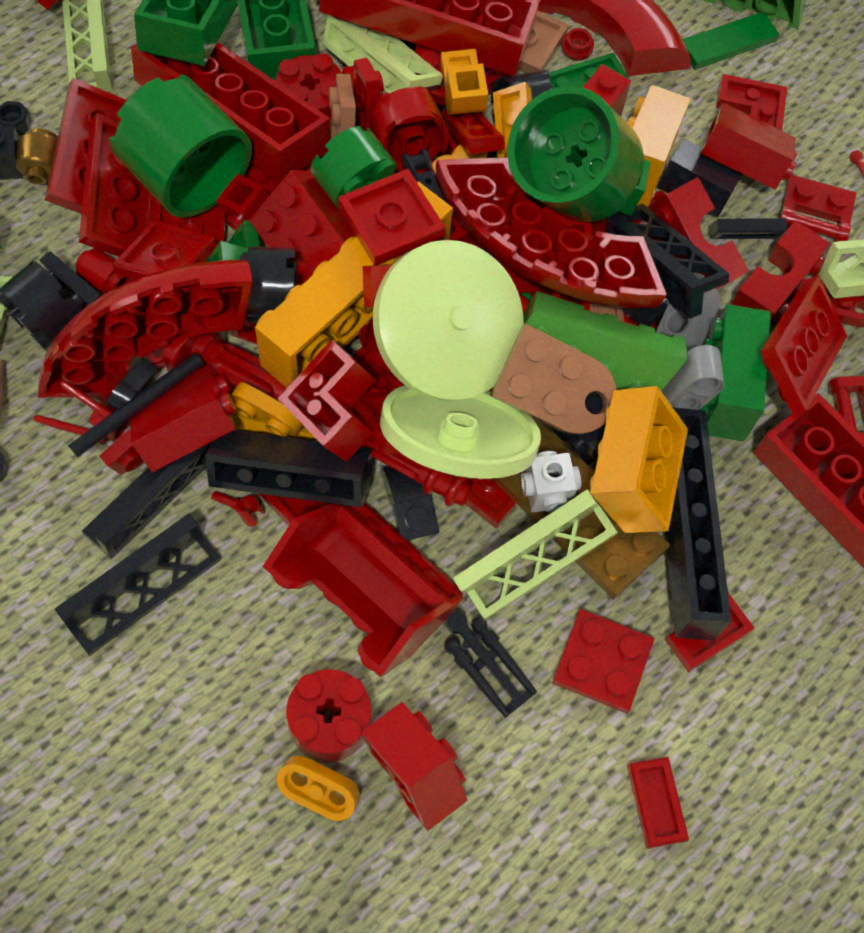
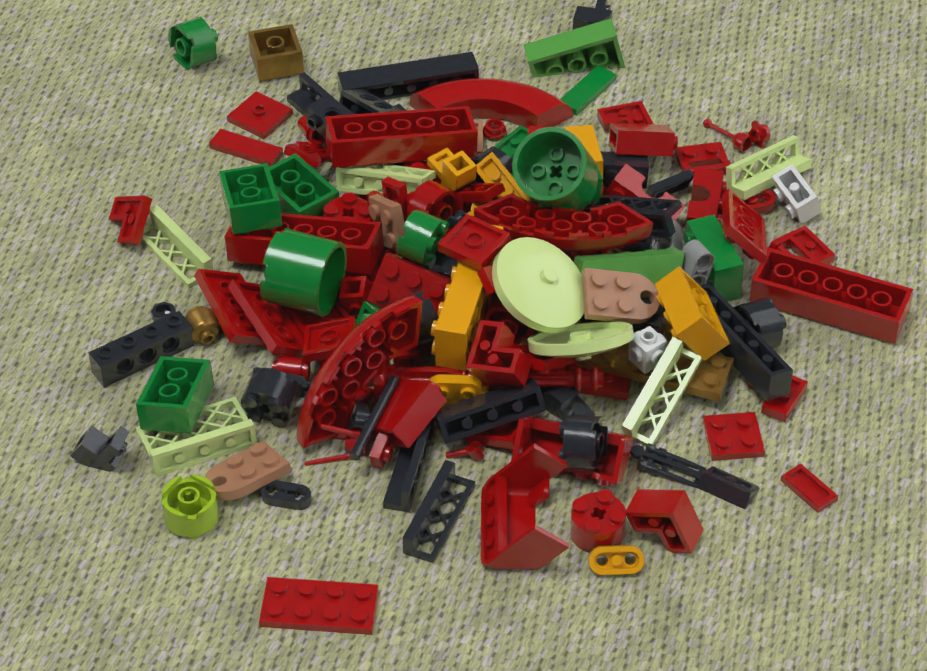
camera: 20 degrees left, 20 degrees down
(224, 647) = (508, 513): none -> red windscreen
(376, 586) = (583, 442): none -> black brick
(547, 740) = (727, 487): none -> black slope
(743, 506) = (764, 319): none -> black brick

